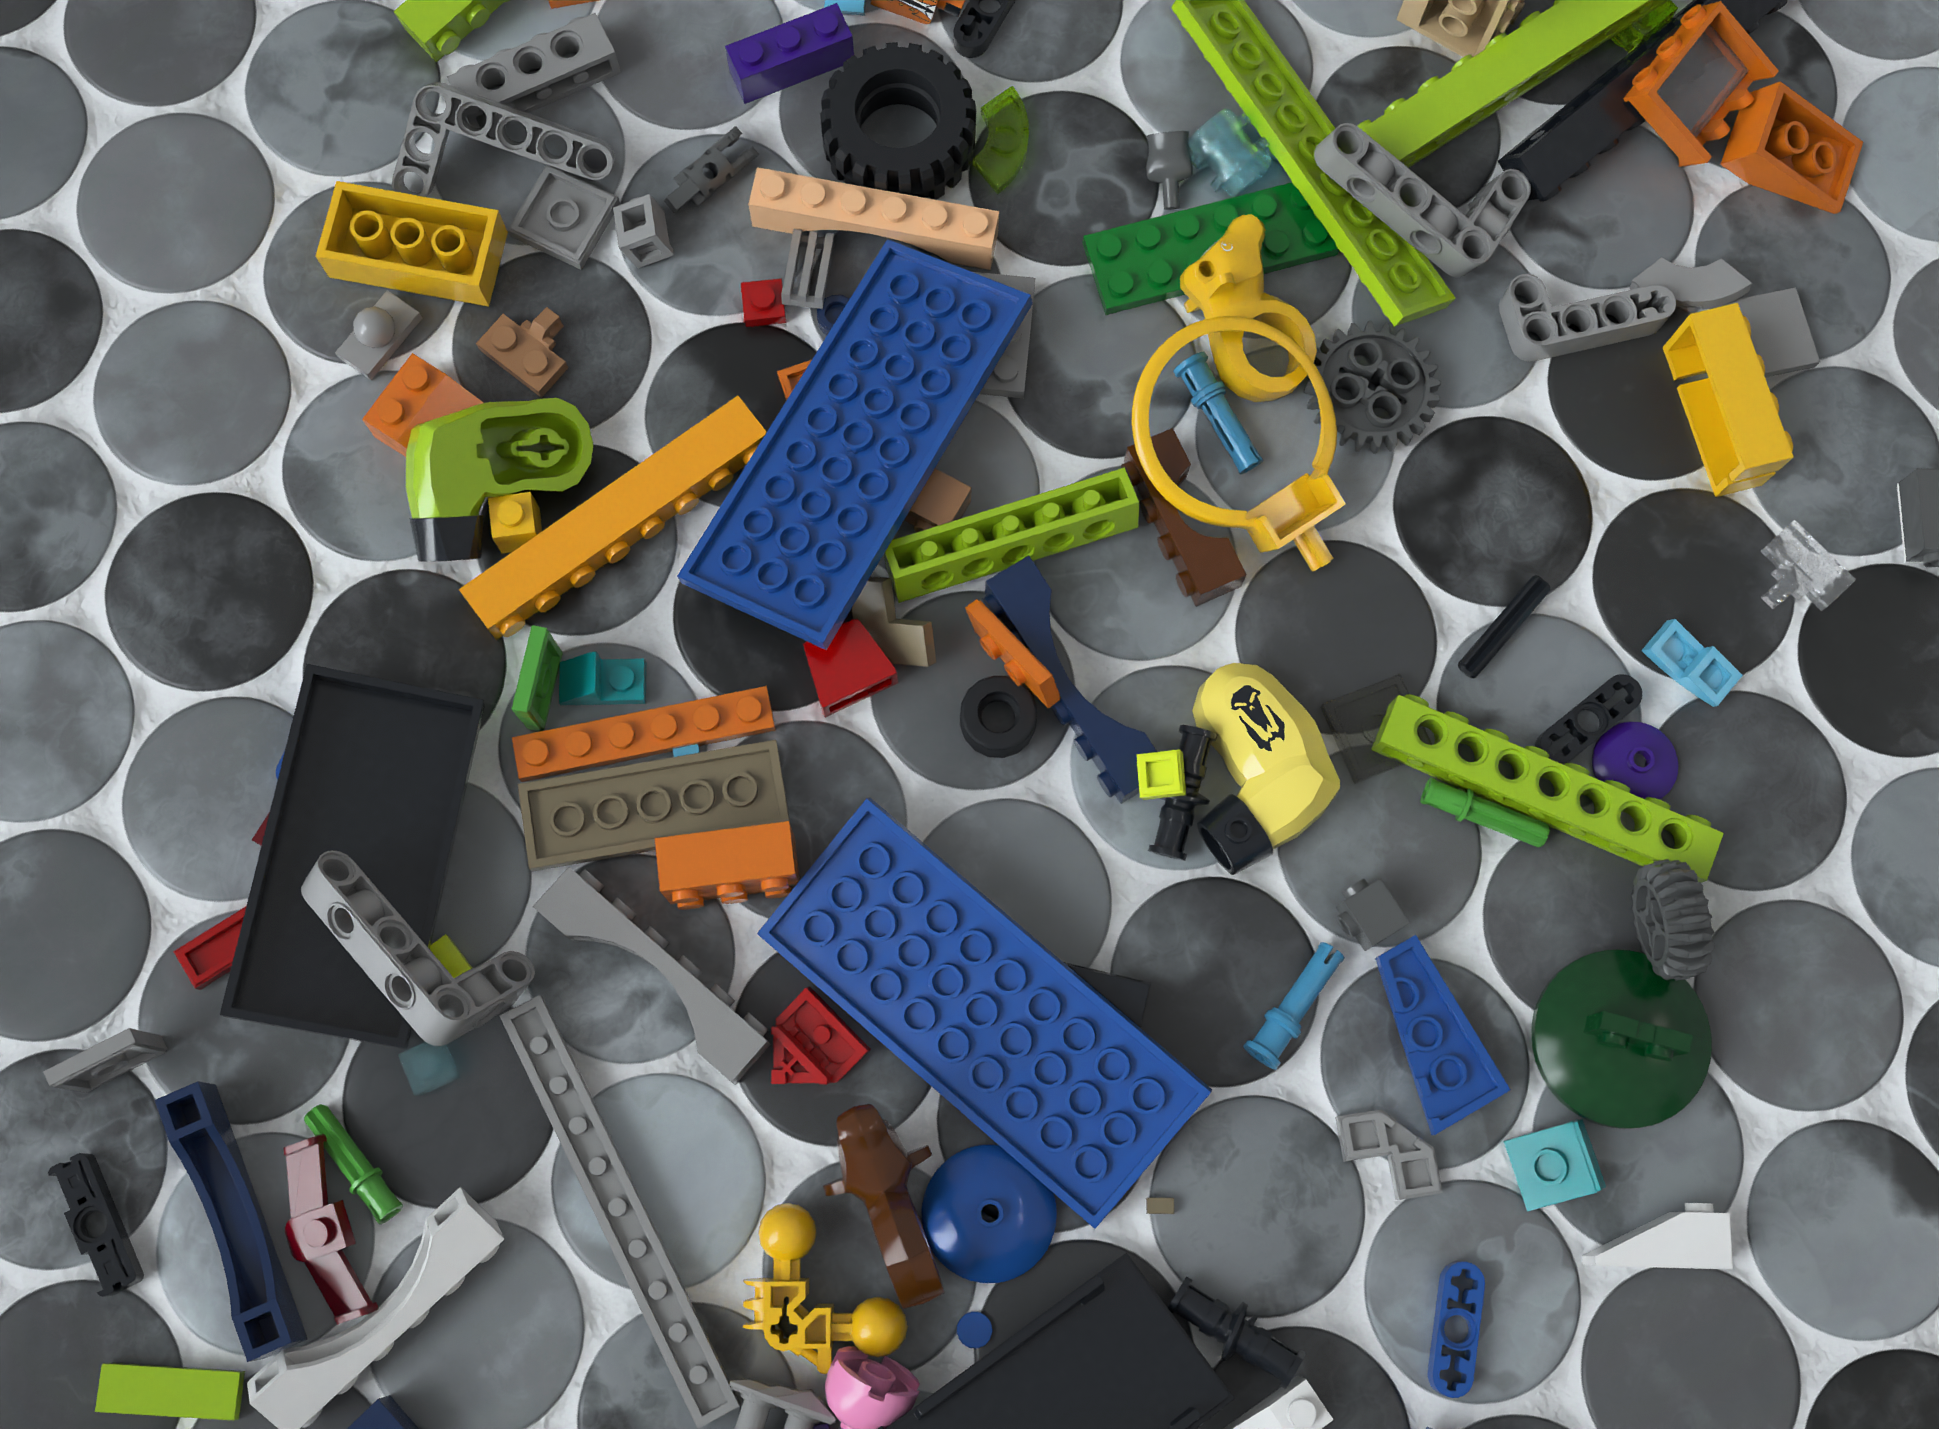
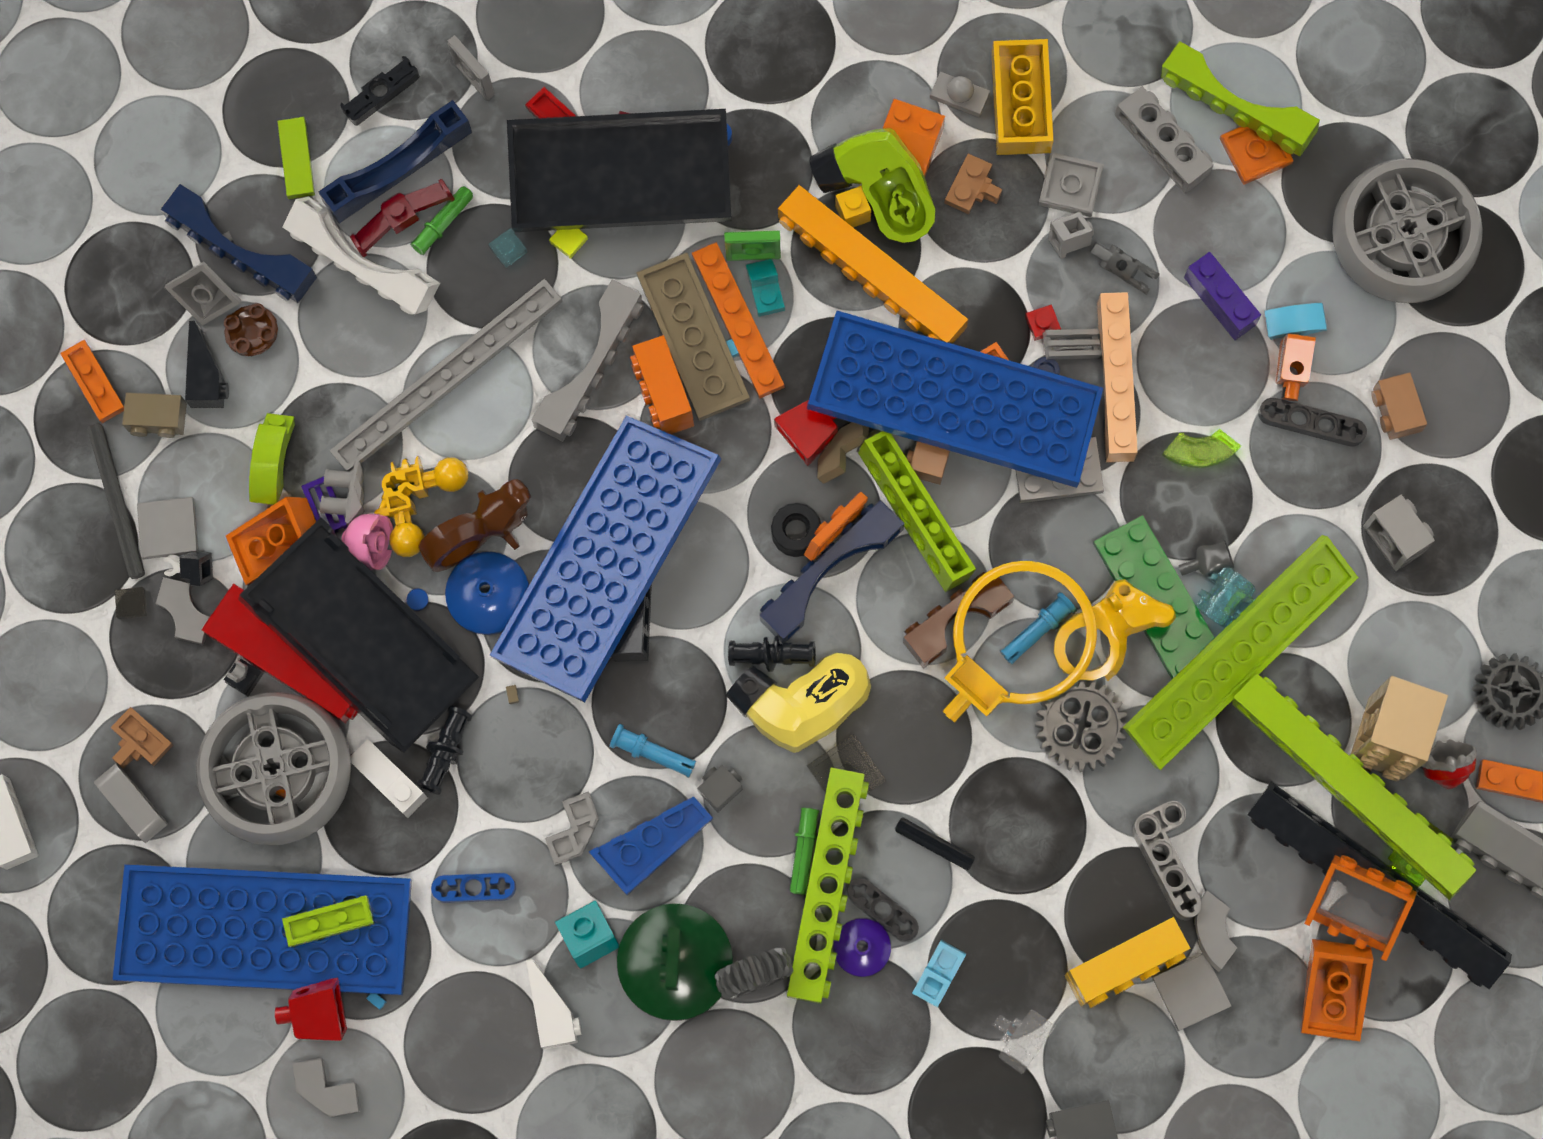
camera: 85 degrees right, 0 degrees up
(401, 963) = (553, 217): light grey beam -> none
(493, 133) = (1106, 125): light grey beam -> none
(813, 1043) = (568, 465): red slope -> none
(903, 78) = (1192, 342): black tyre -> none
(1161, 774) = (776, 632): neon yellow tile -> none
(1425, 217) = (1207, 736): light grey beam -> none

